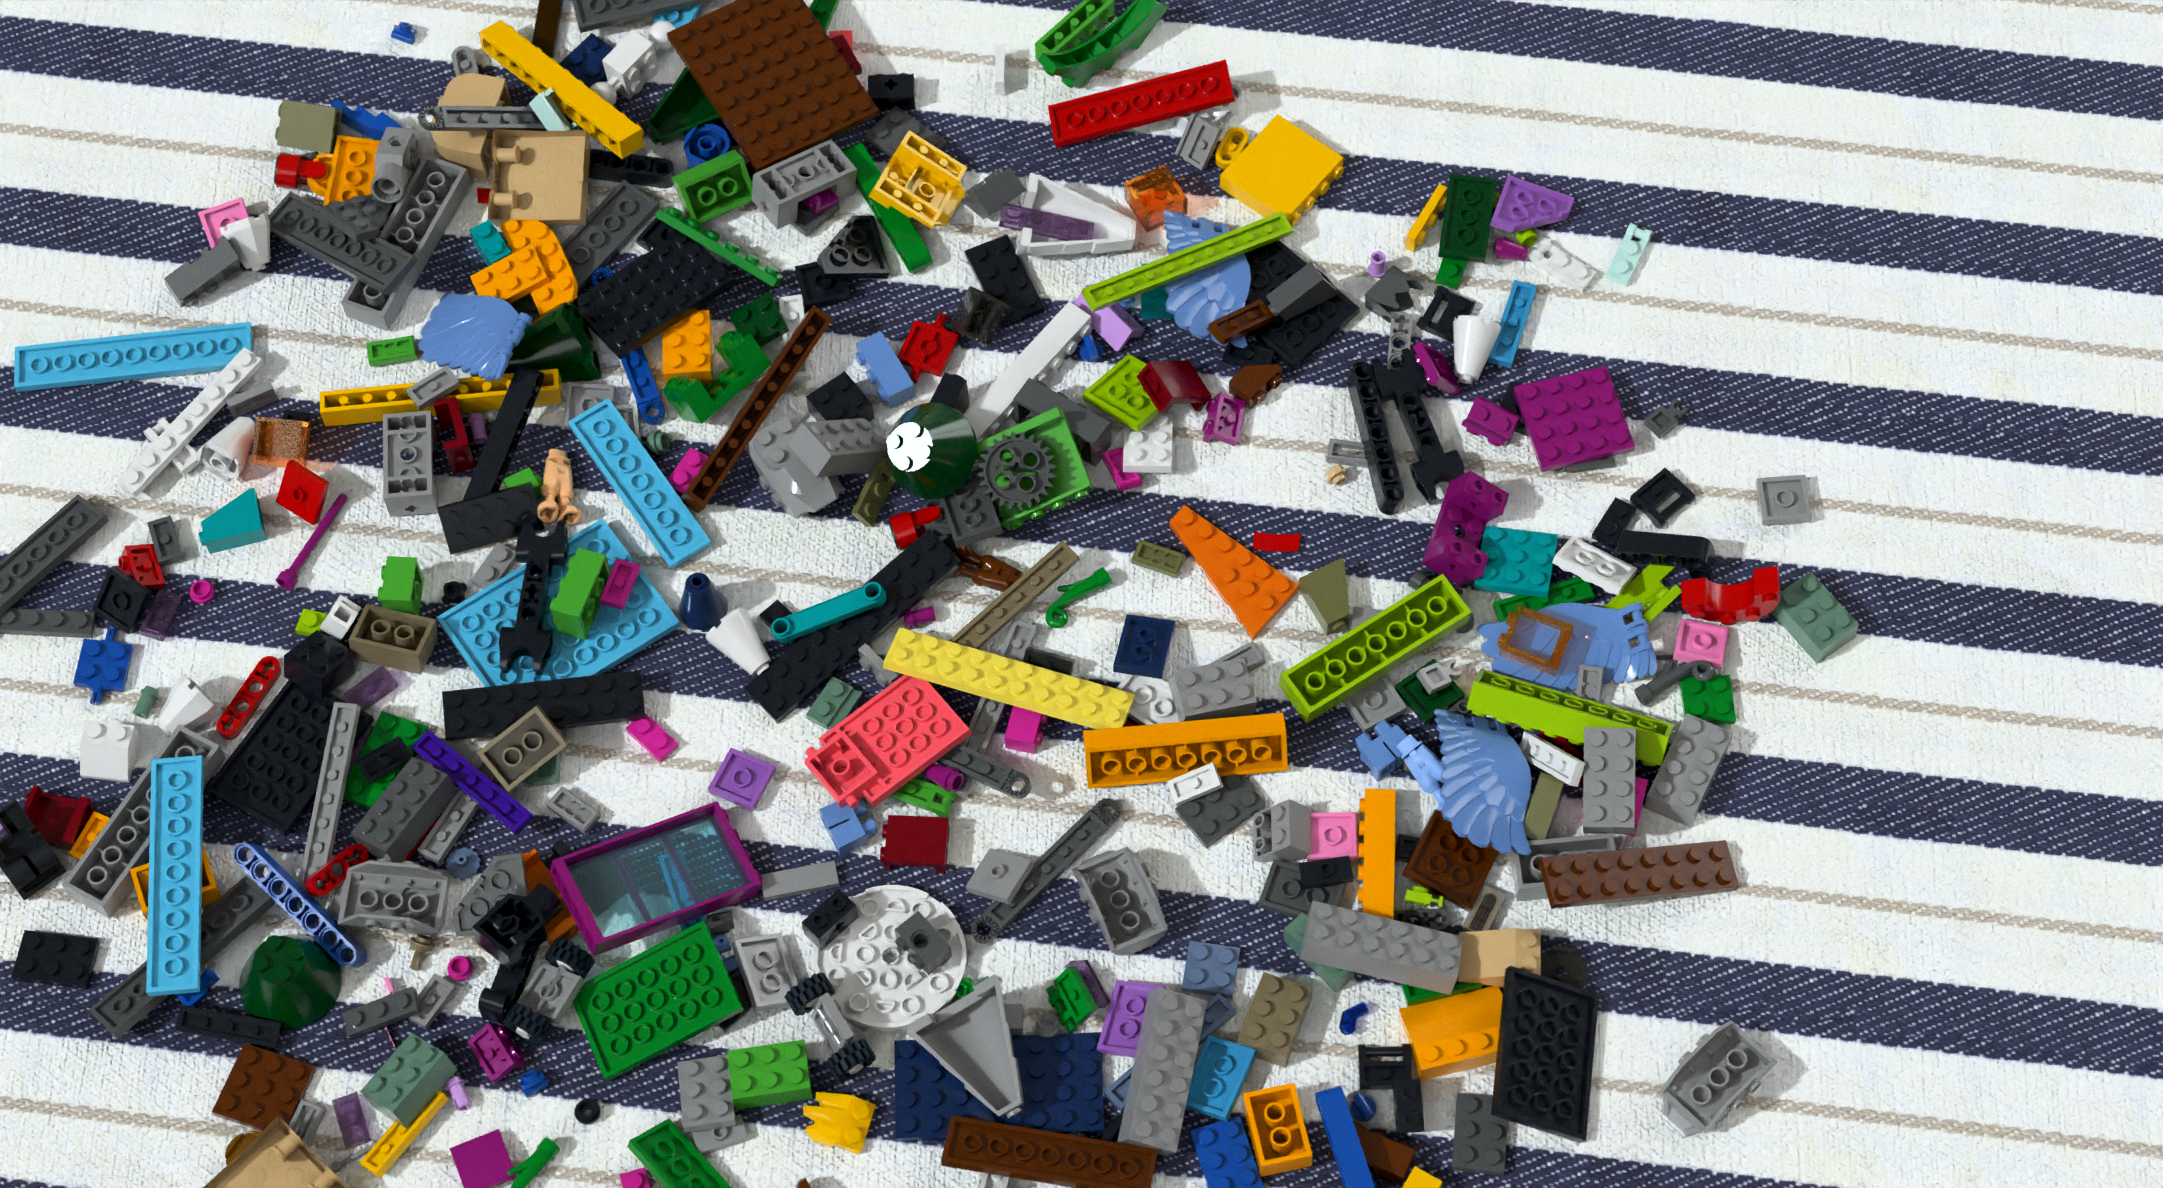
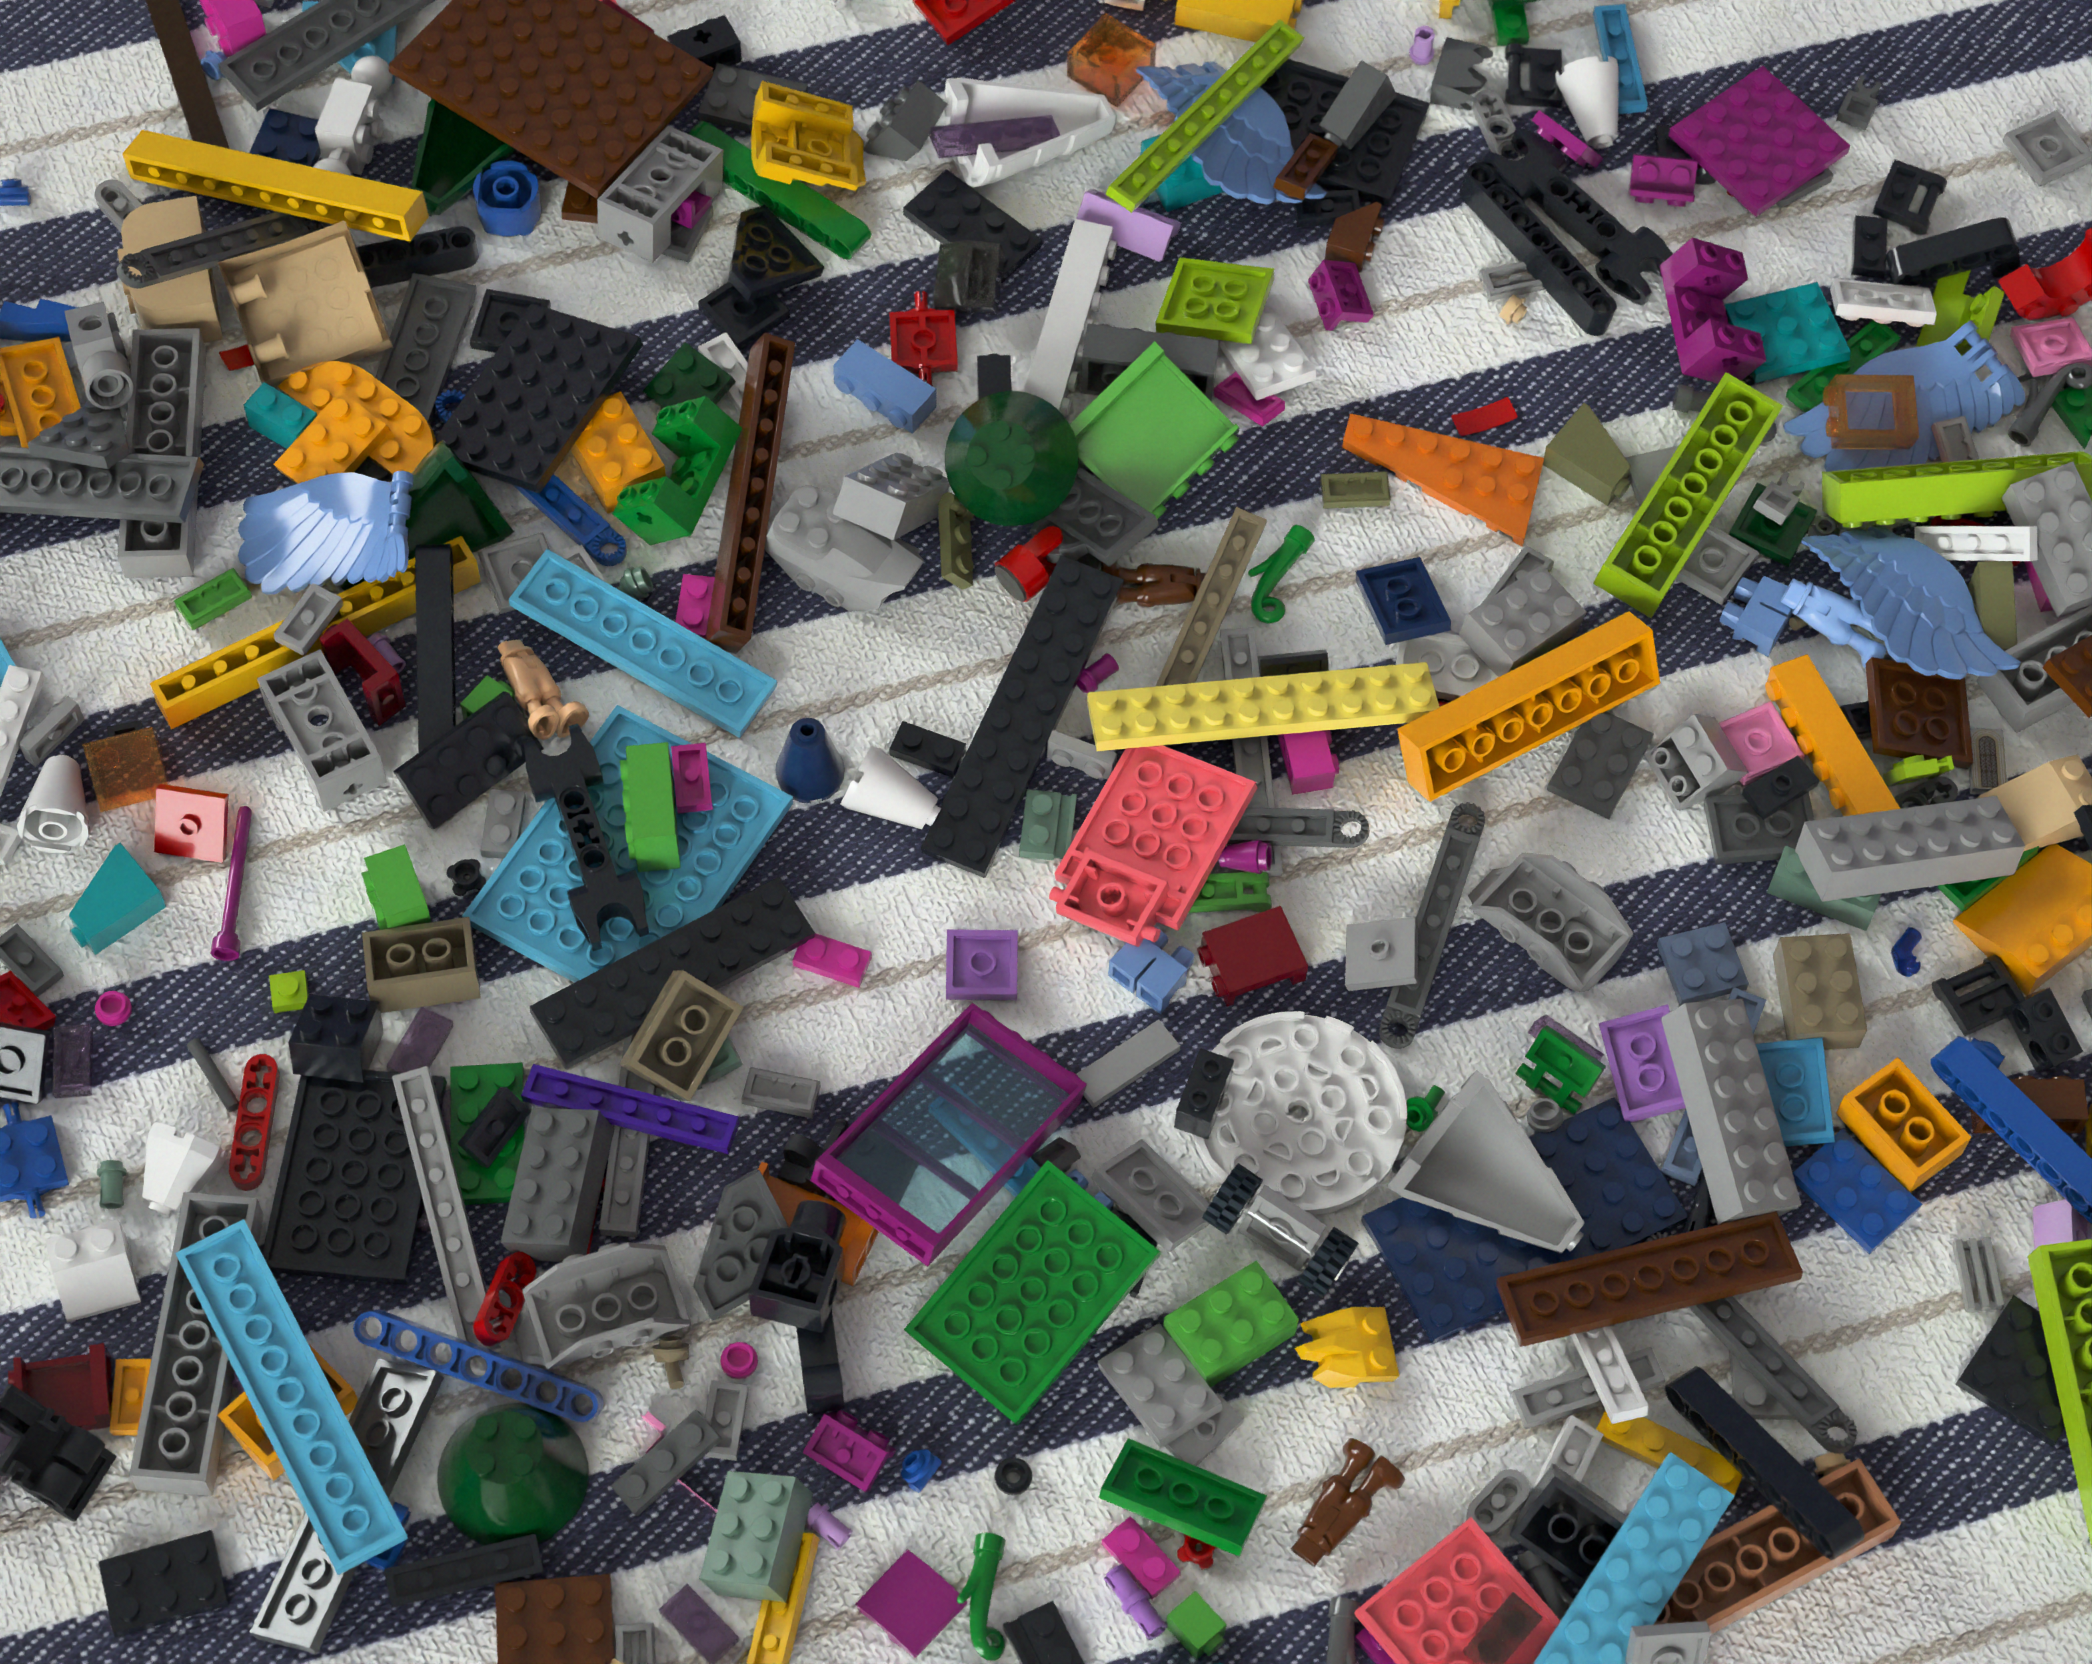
camera: 30 degrees left, 0 degrees up
(240, 657) = (213, 1075): none -> dark grey piece
(340, 618) = (332, 967): white brick -> none
(463, 863) = (666, 1222): sand blue piece -> none
(549, 113) = (276, 220): light aqua hinge -> none
(549, 992) = (883, 1340): plate -> none
(714, 187) = (543, 239): bright green brick -> none
(727, 250) = (576, 305): green plate -> none
(828, 612) = (988, 708): teal piece -> none
(839, 400) = (848, 445): black brick -> none
(919, 929) = (1329, 1058): dark grey brick -> none
(1021, 449) = (1130, 414): dark grey gear -> none
(1090, 350) = (1128, 270): blue plate -> none
(1173, 383) = (1263, 272): dark red panel -> none
(1195, 784) = (1562, 742): white plate -> none

